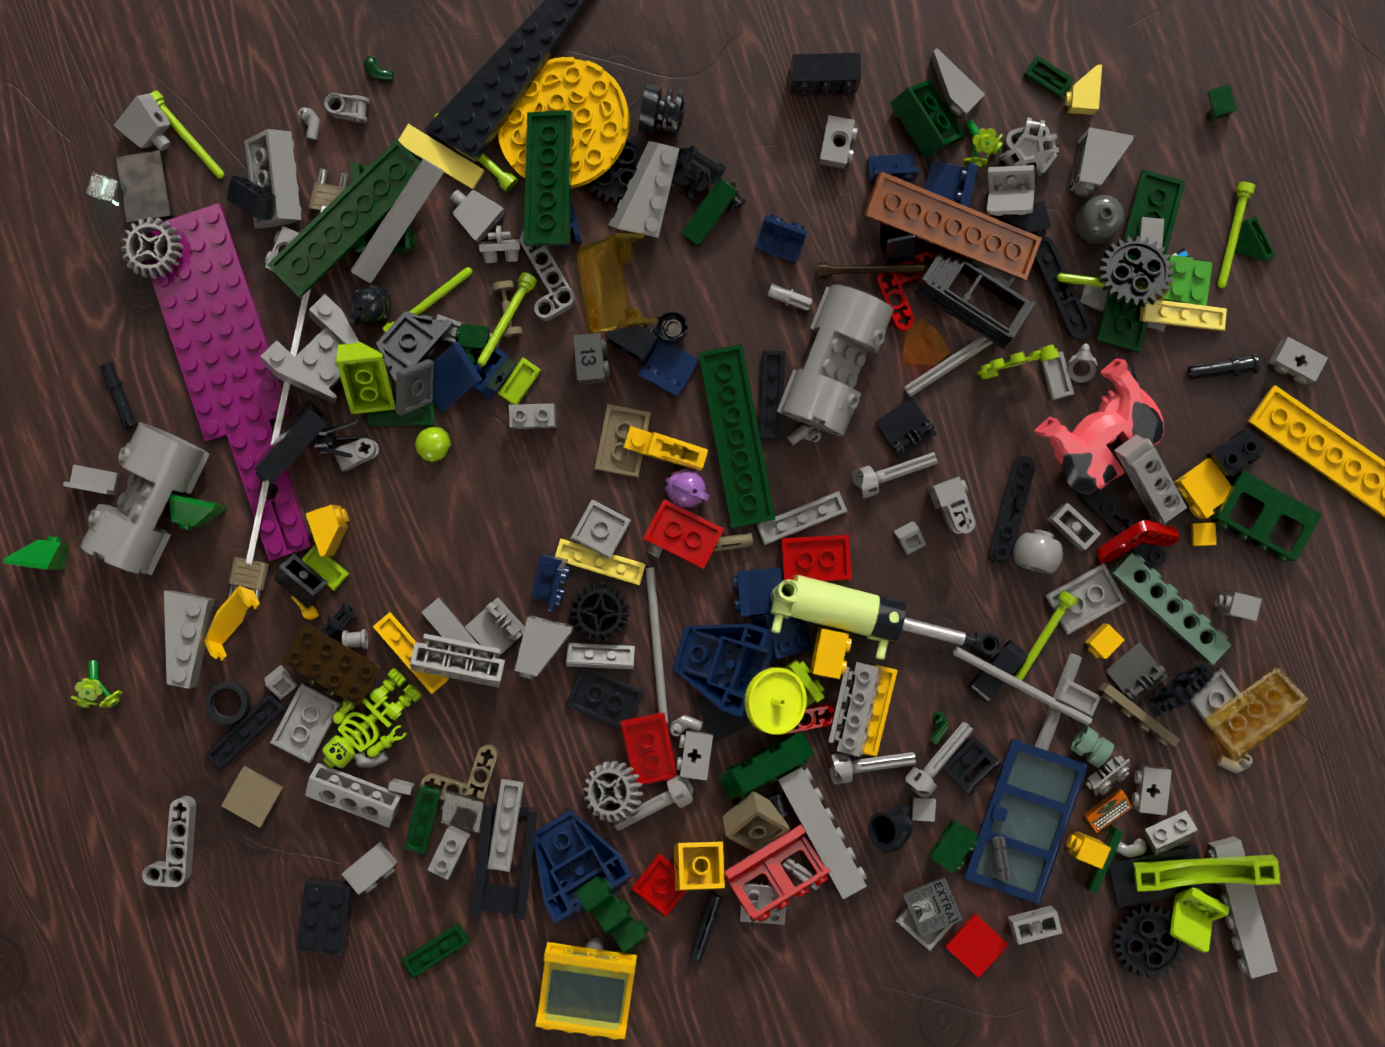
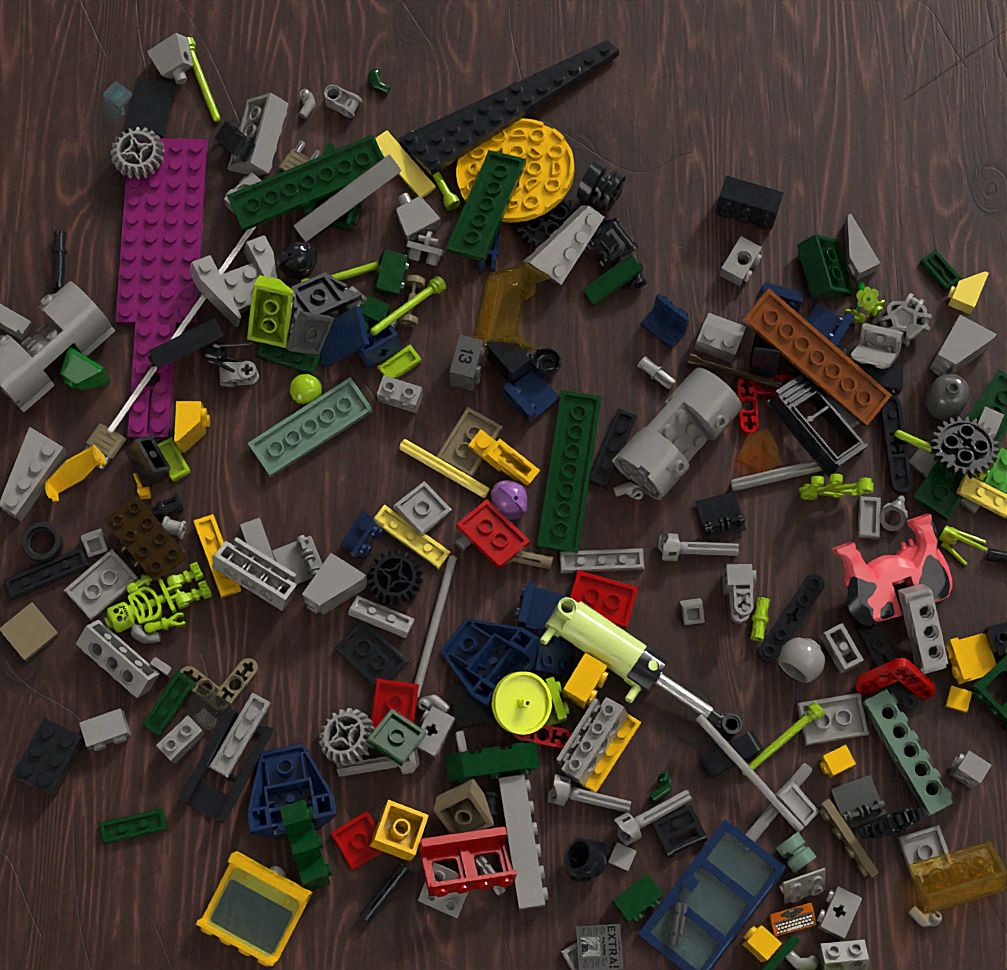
camera: 20 degrees right, 15 degrees down
(453, 483) = (310, 427): none -> sand green plate
(473, 287) = (390, 273): none -> dark green brick
(555, 290) = (458, 299): light grey beam -> none
(607, 478) = (444, 468): none -> light yellow axle
(663, 778) = (396, 737): none -> tile
(727, 756) = (461, 743): none -> light grey tile
(843, 234) = (720, 337): none -> light grey slope
(981, 523) = (760, 619): none -> lime pin
(1147, 367) = (951, 535): none -> lime plant

